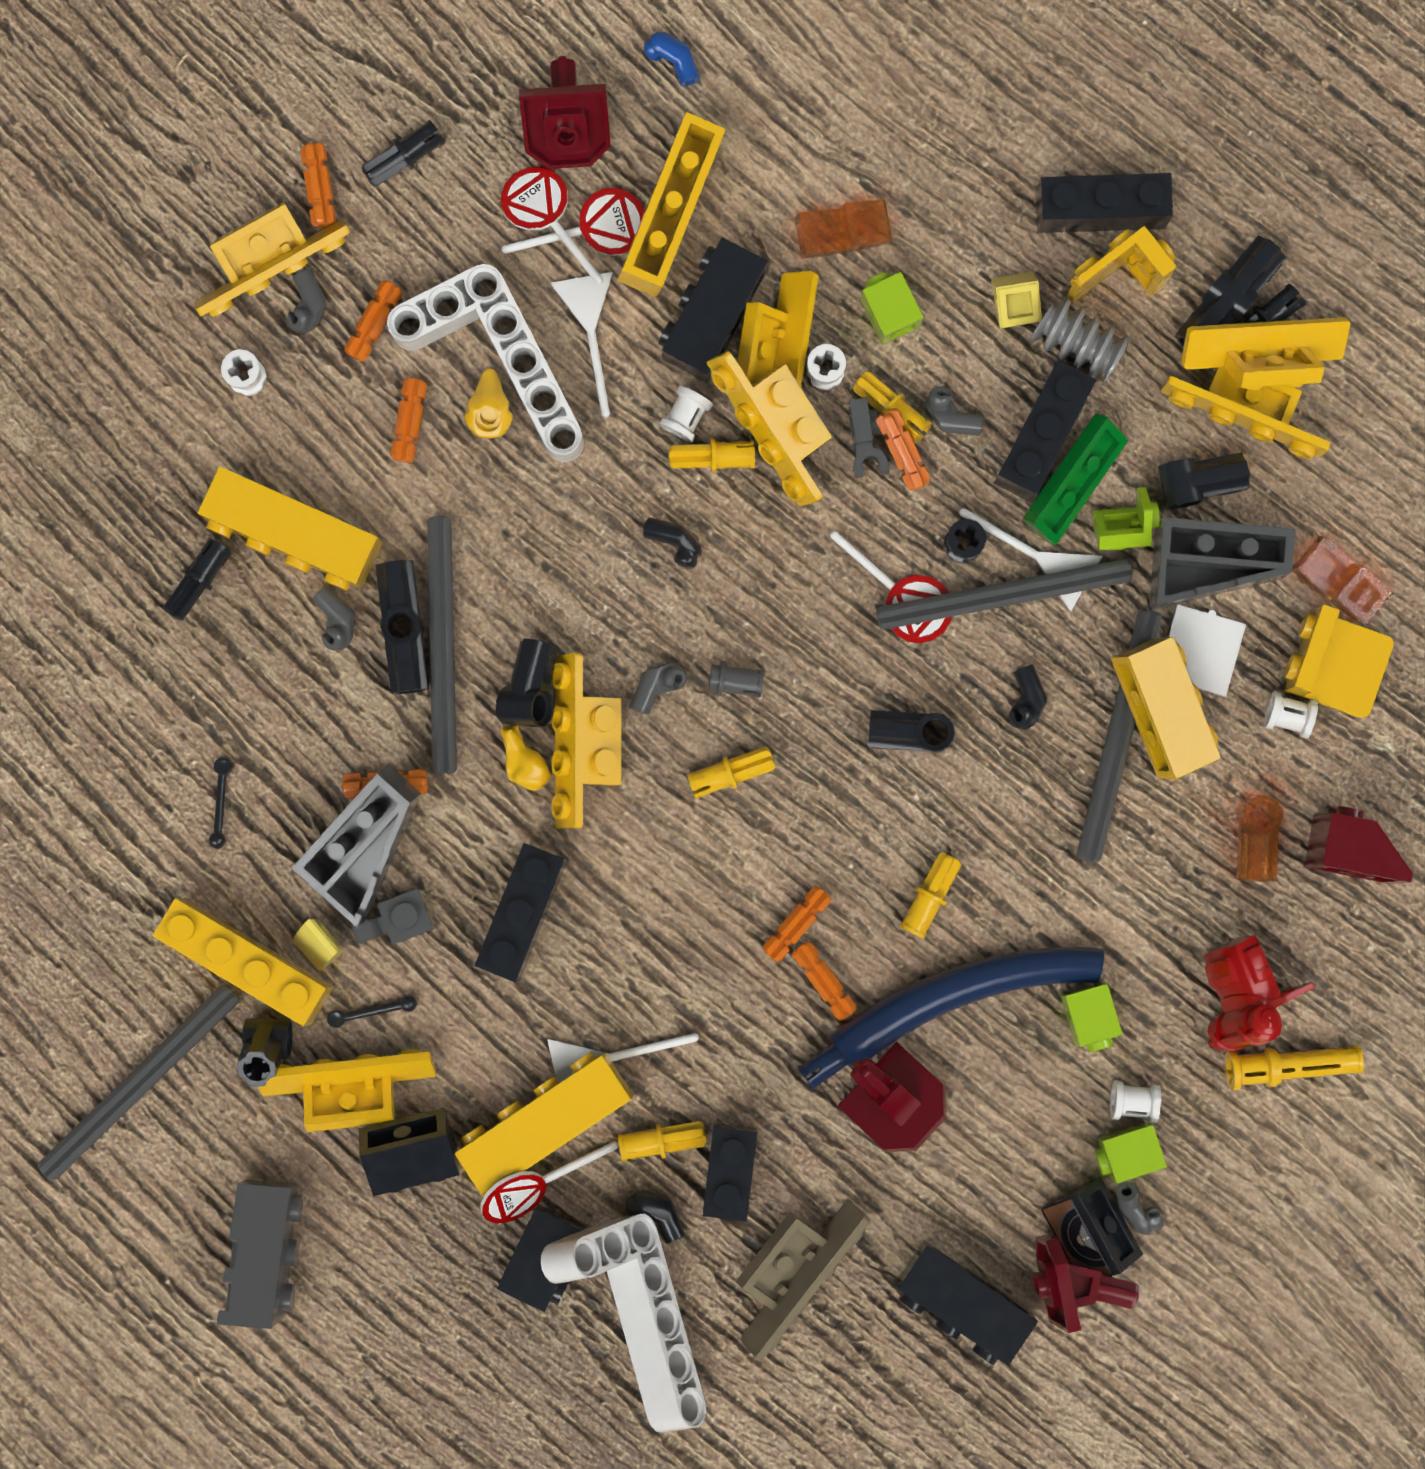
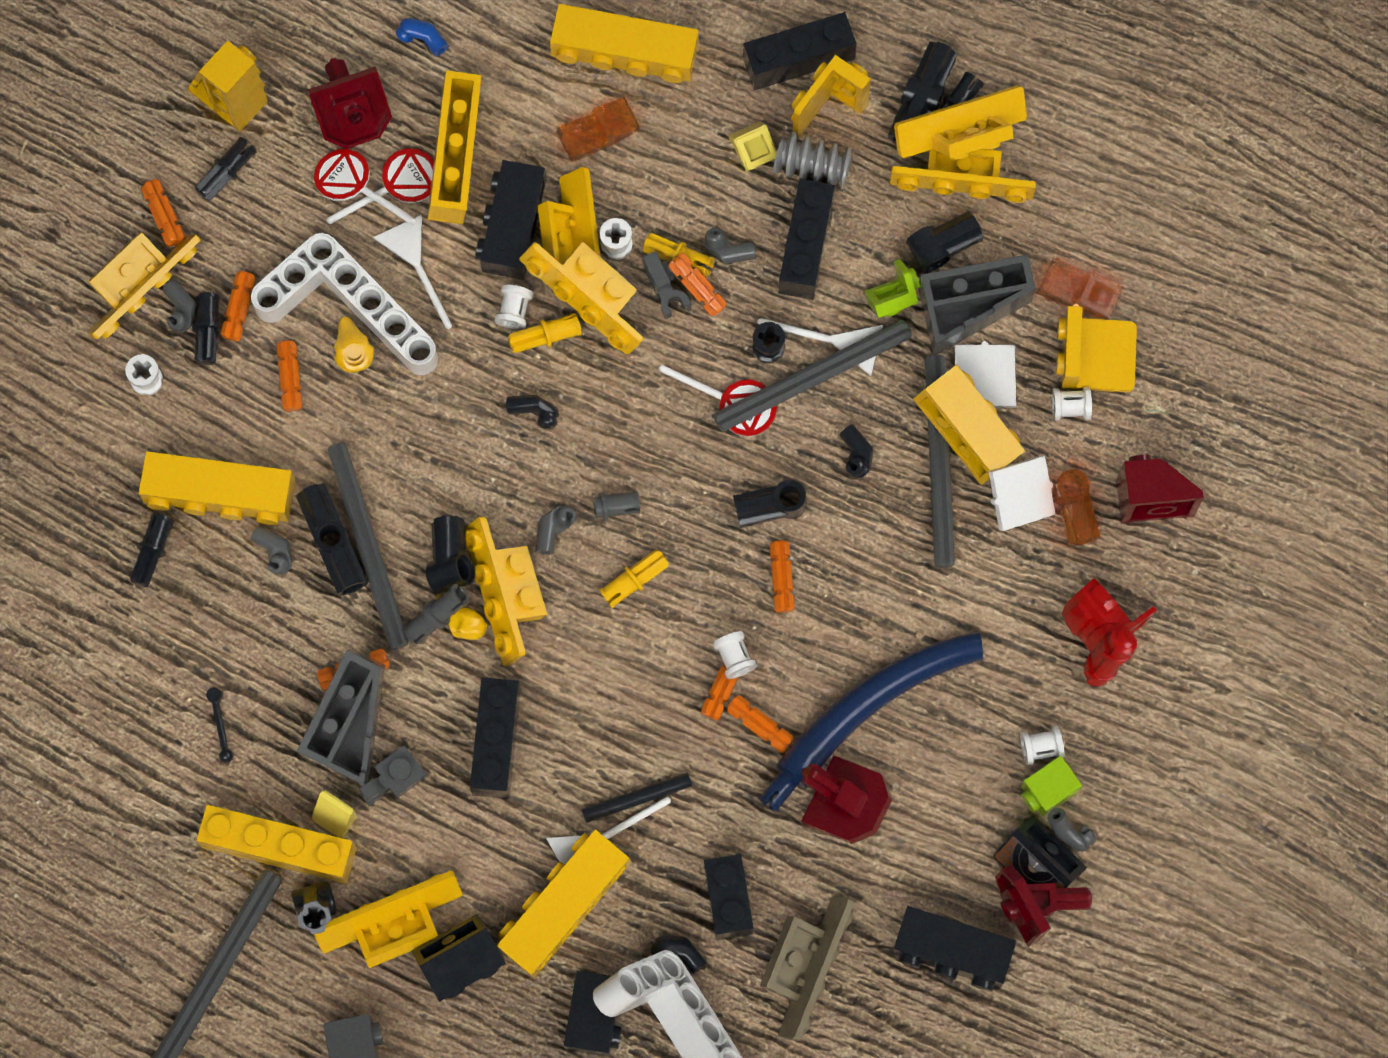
camera: 20 degrees left, 10 degrees down
(329, 337) = (206, 328): none -> black axle
(338, 1018) = (367, 872): black hinge -> none
(435, 58) = (231, 85): none -> yellow wedge
(495, 751) = (436, 614): none -> dark grey pin
(523, 1191) = (558, 964): piece -> none
(661, 1023) = (636, 797): none -> black bar
(662, 1140) = (665, 890): yellow axle -> none
(818, 899) = (734, 655): none -> white bush
(890, 306) = (654, 178): lime brick -> none
(899, 818) = (782, 576): none -> orange axle
(903, 135) = (624, 43): none -> yellow brick
(931, 895) = (826, 630): yellow axle -> none
(1075, 479) = (842, 269): green plate -> none
(1091, 1017) = (985, 687): lime brick -> none
(1201, 805) = (1022, 493): none -> white piece
(1274, 1067) = (1145, 685): yellow pin -> none

